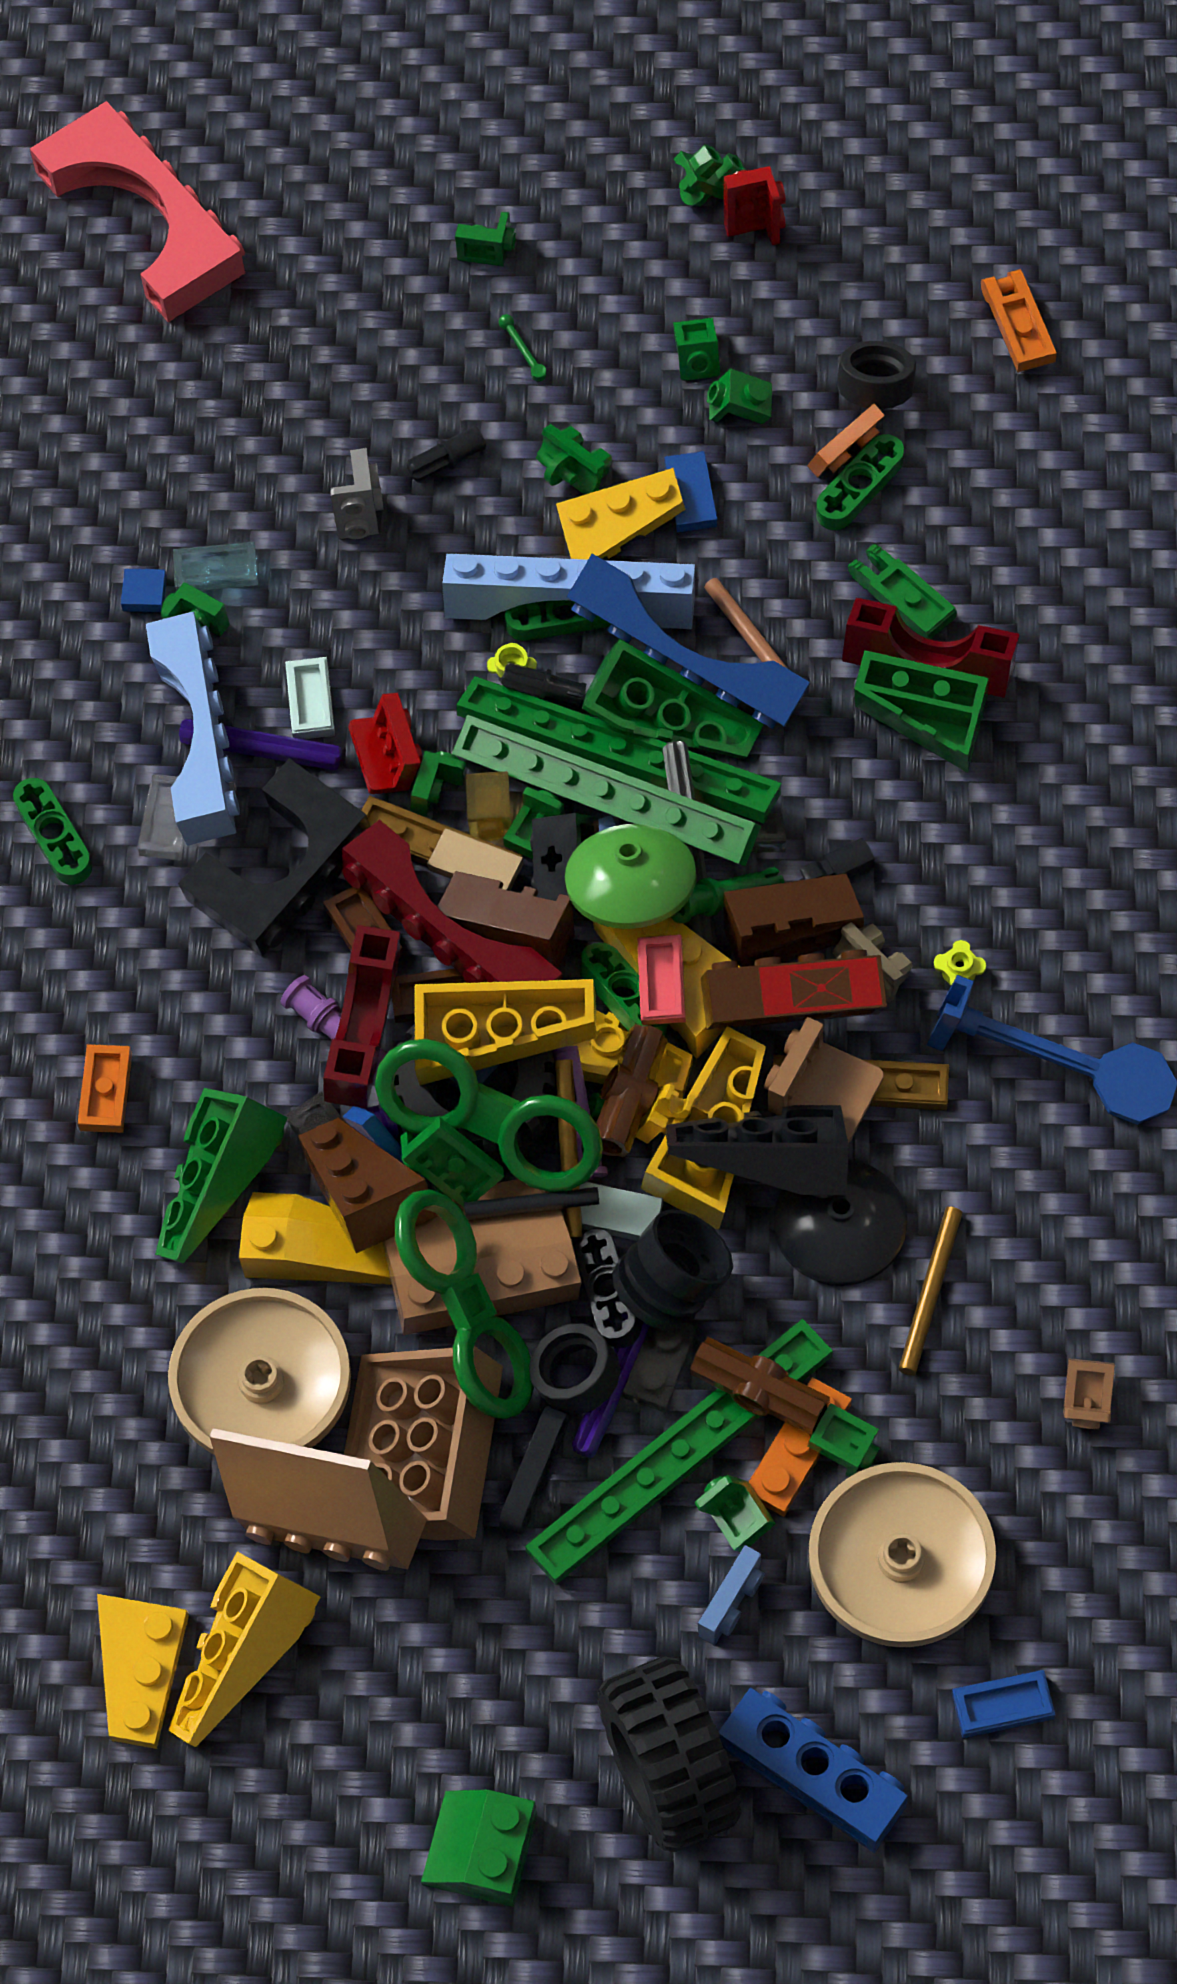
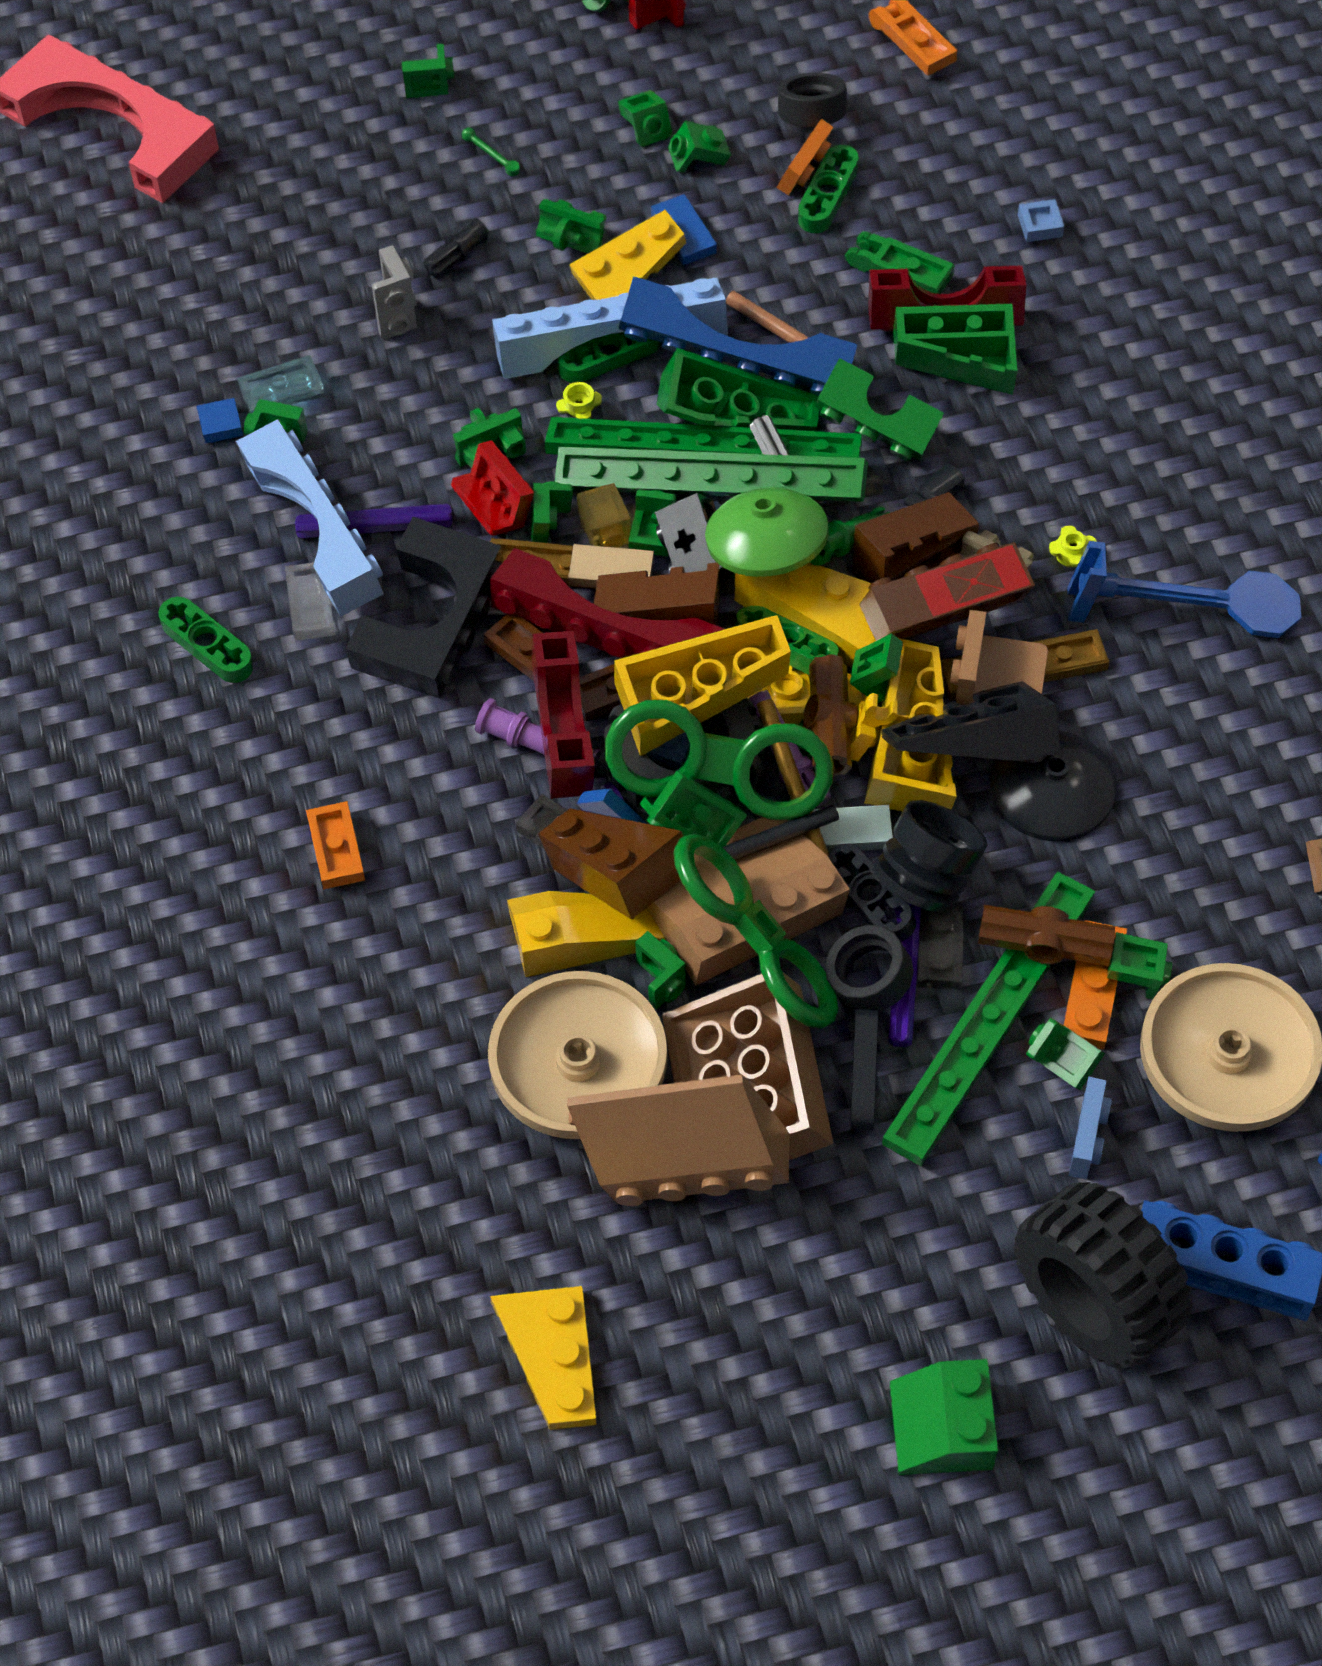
camera: 20 degrees left, 5 degrees down
(228, 1148) = (469, 868): green wedge -> none
(253, 1628) = (651, 1281): yellow wedge -> none
(310, 698) = (405, 472): light aqua tile -> none
(377, 1300) = (664, 964): none -> green bracket
(407, 678) = (502, 429): none -> green hips
(543, 684) = (615, 408): black axle -> none
(661, 979) = (824, 614): coral tile -> none
(692, 1052) = (876, 665): none -> green bracket
(778, 738) = (846, 401): none -> green arch
(930, 1291) = (1157, 821): pearl gold bar -> none
(1070, 579) = (1040, 220): none -> medium blue plate

